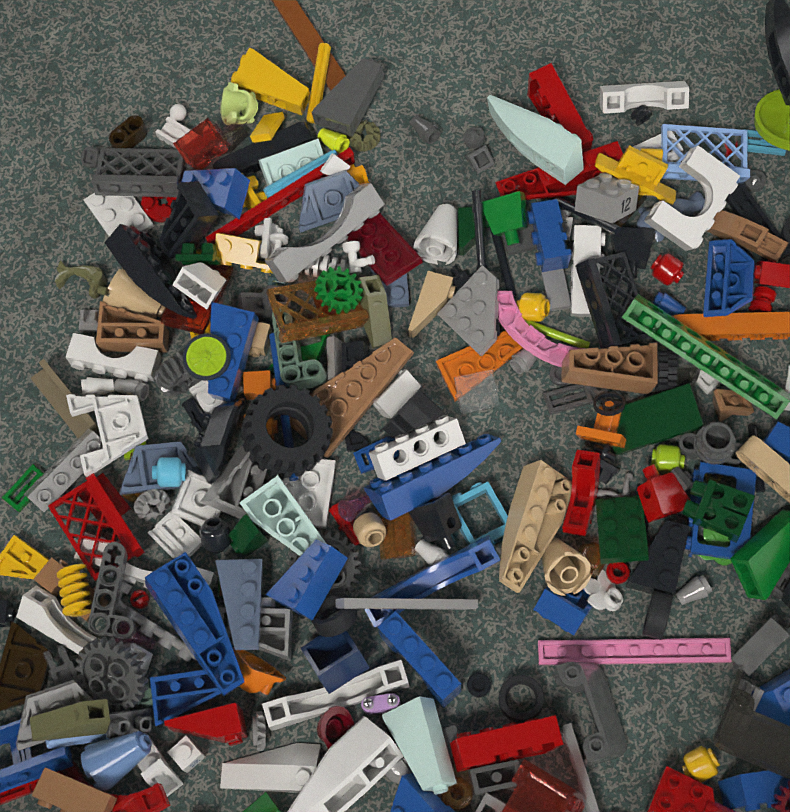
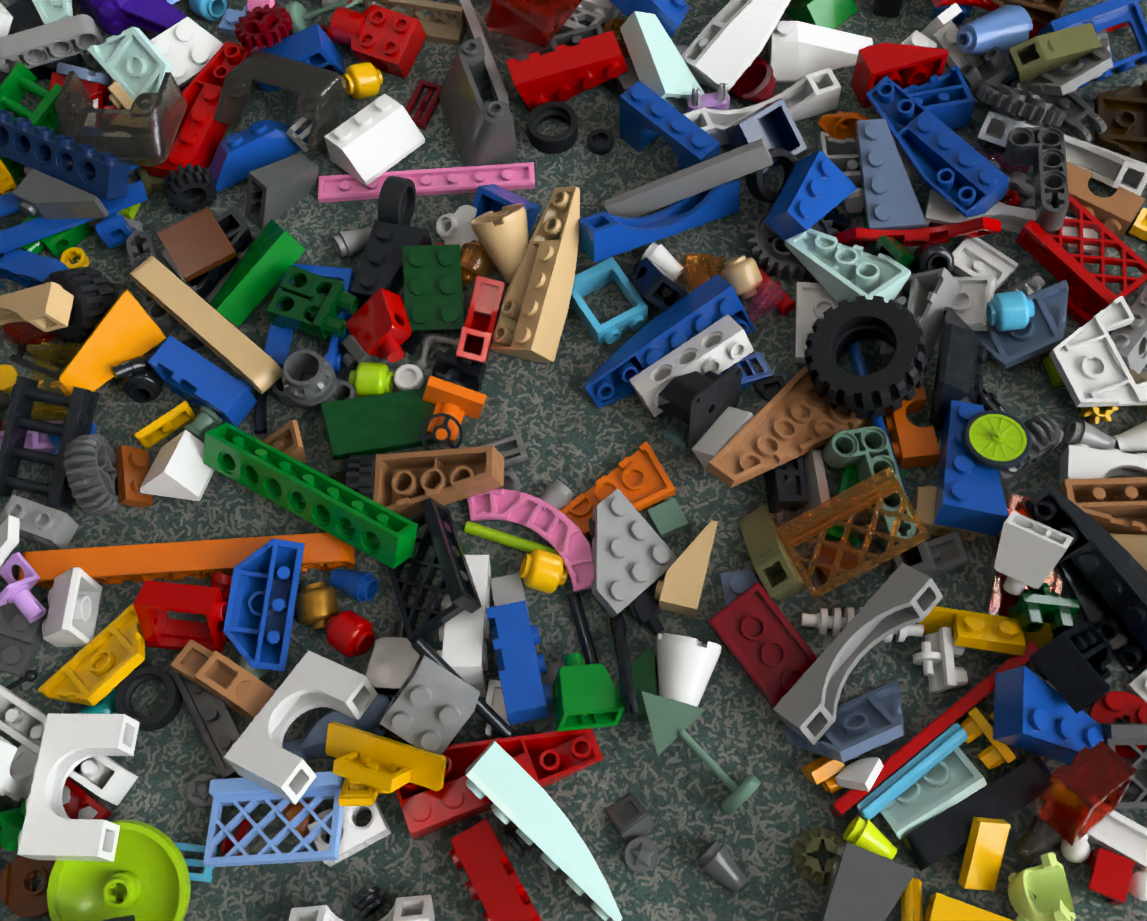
camera: 175 degrees right, 5 degrees down
(73, 591) = (1091, 177): yellow piece -> none
(195, 114) = (1110, 875): none -> red panel
(259, 733) = (841, 72): light grey gear -> none
(271, 557) = (916, 237): none -> red tile
(344, 298) = (829, 542): green gear -> none
(355, 264) = (814, 638): white piece -> none
(442, 345) = (667, 518): none -> sand green tile
(450, 202) = (669, 720): none -> sand green piece
(476, 391) = (617, 452): clear piece -> none
(634, 758) = (431, 107): none -> dark red tile
(637, 463) = (408, 377): none -> white tile
(682, 688) = (374, 139): none -> white slope
(692, 289) = (316, 605): none -> pearl gold head

